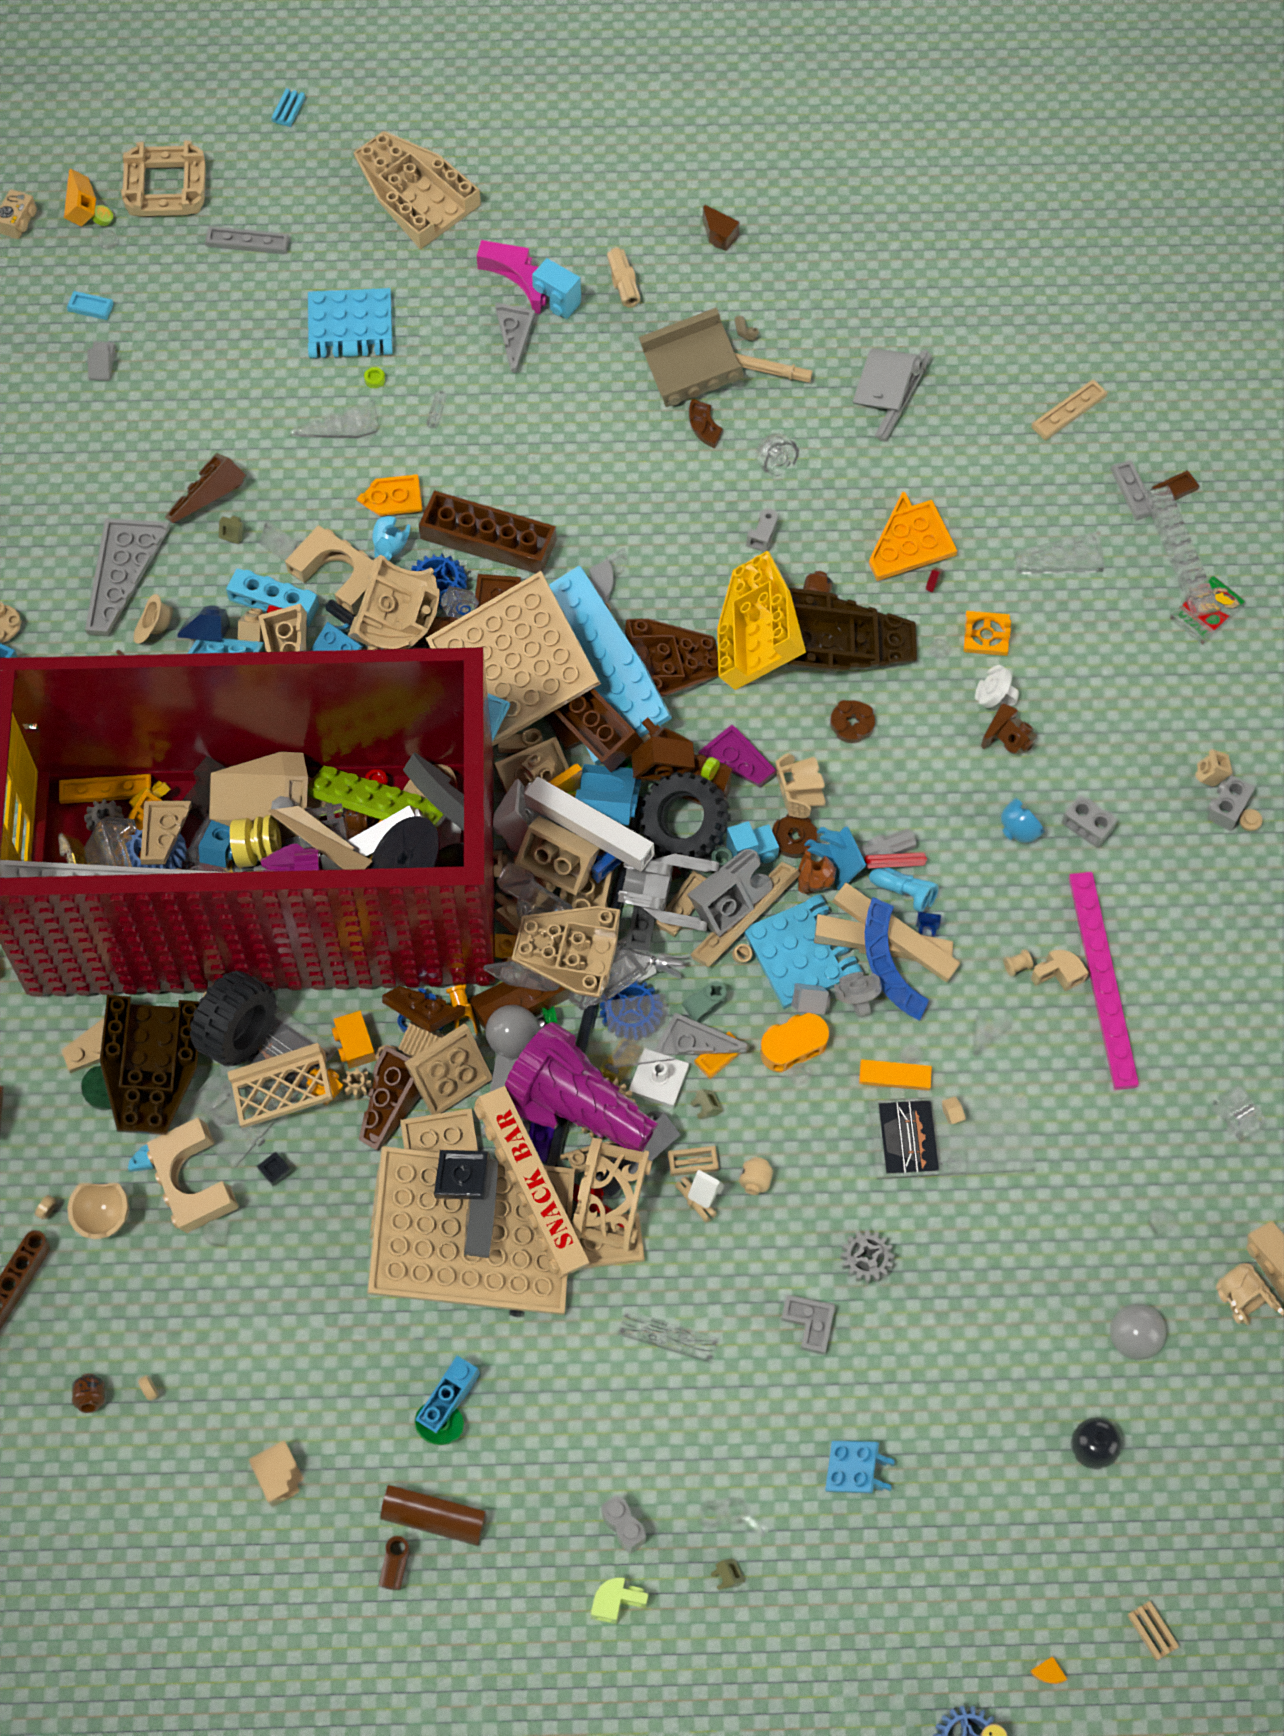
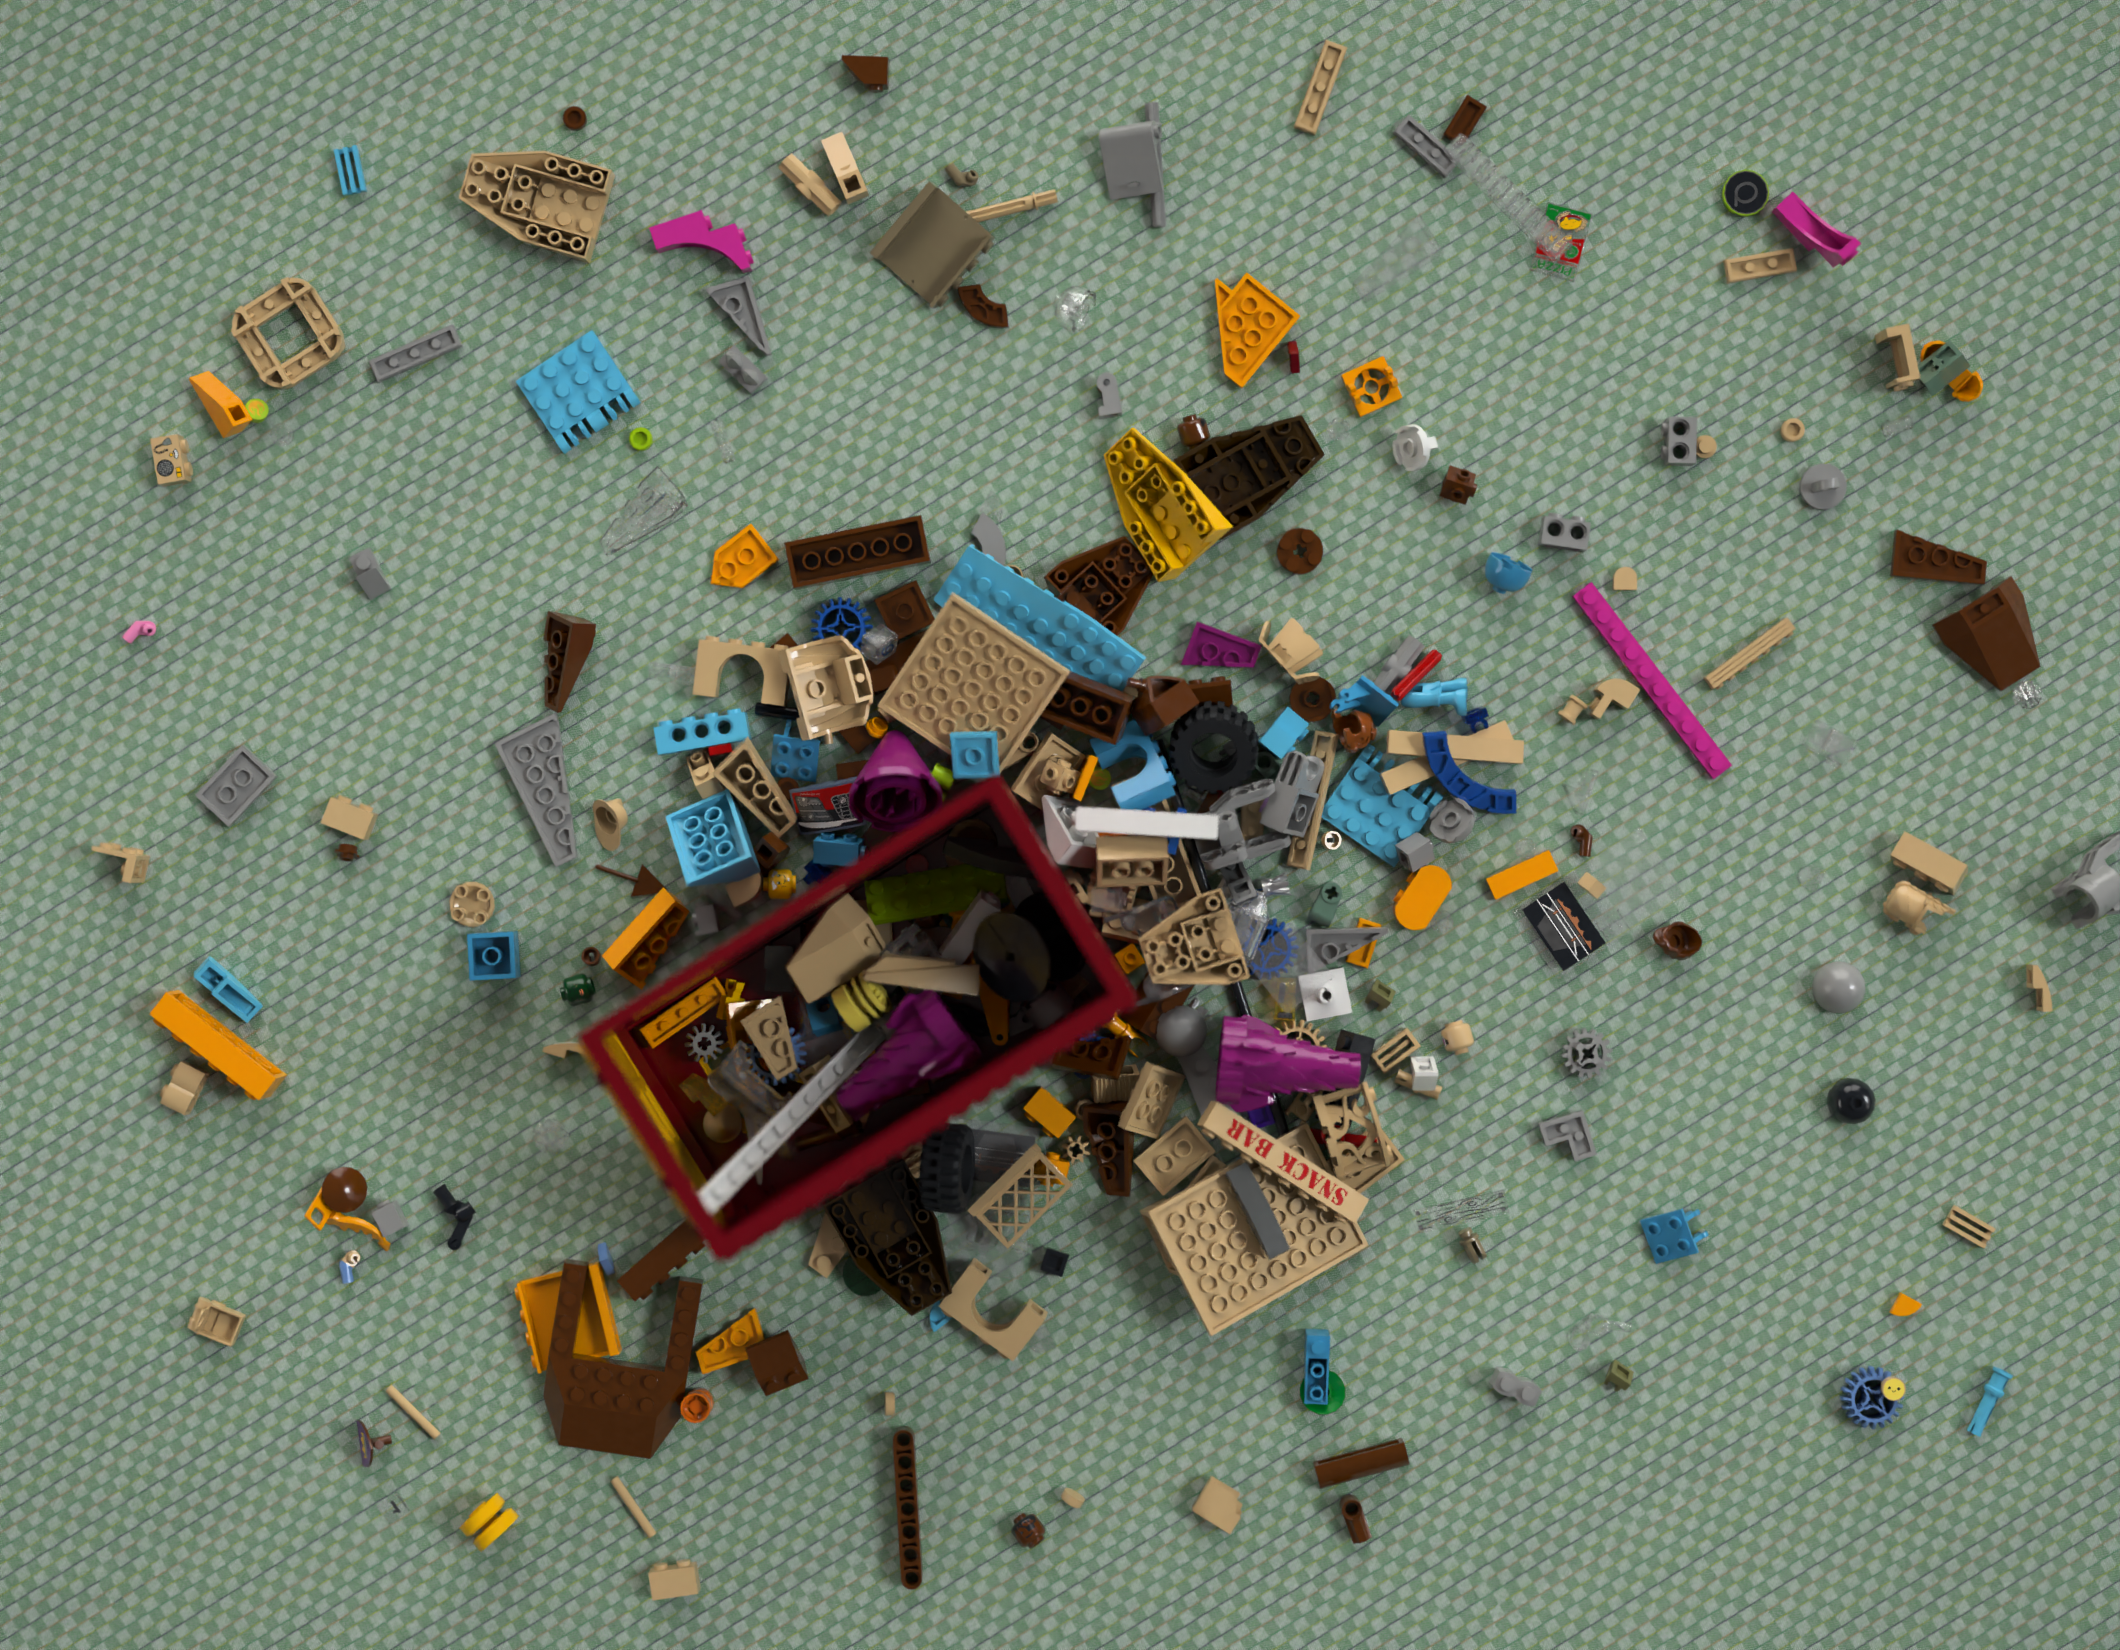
camera: 30 degrees left, 25 degrees up
(90, 305) = (315, 517): medium azure tile -> none
(98, 1209) = (937, 1384): tan cylinder -> none
(206, 624) = (664, 805): dark blue slope -> none
(230, 529) = (617, 684): olive tile -> none
(281, 802) = (865, 957): light grey tile -> none
(387, 538) = (771, 613): medium azure helmet -> none
(461, 1174) = (1227, 1197): black tile -> none
(476, 155) = (574, 118): none -> reddish brown tile
(486, 370) = (742, 369): none -> light grey tile
(550, 1015) = (1201, 993): green bush -> none
(560, 286) = (758, 241): medium azure brick -> none
(611, 1595) = (1538, 1444): yellowish green brick -> none
(657, 281) = (845, 168): none -> tan slope
(660, 1360) = (1472, 1245): none -> dark tan arm
(710, 768) = (1213, 694): lime tile -> none
(969, 1074) = (1584, 837): none -> reddish brown arm
(1002, 716) = (1434, 476): reddish brown slope -> none
(1008, 1204) = (1678, 940): none -> reddish brown hair
(1123, 886) = (1625, 579): none -> tan tile
(1204, 1002) = (1750, 653): none -> tan piece
(1209, 768) = (1644, 419): tan brick -> none

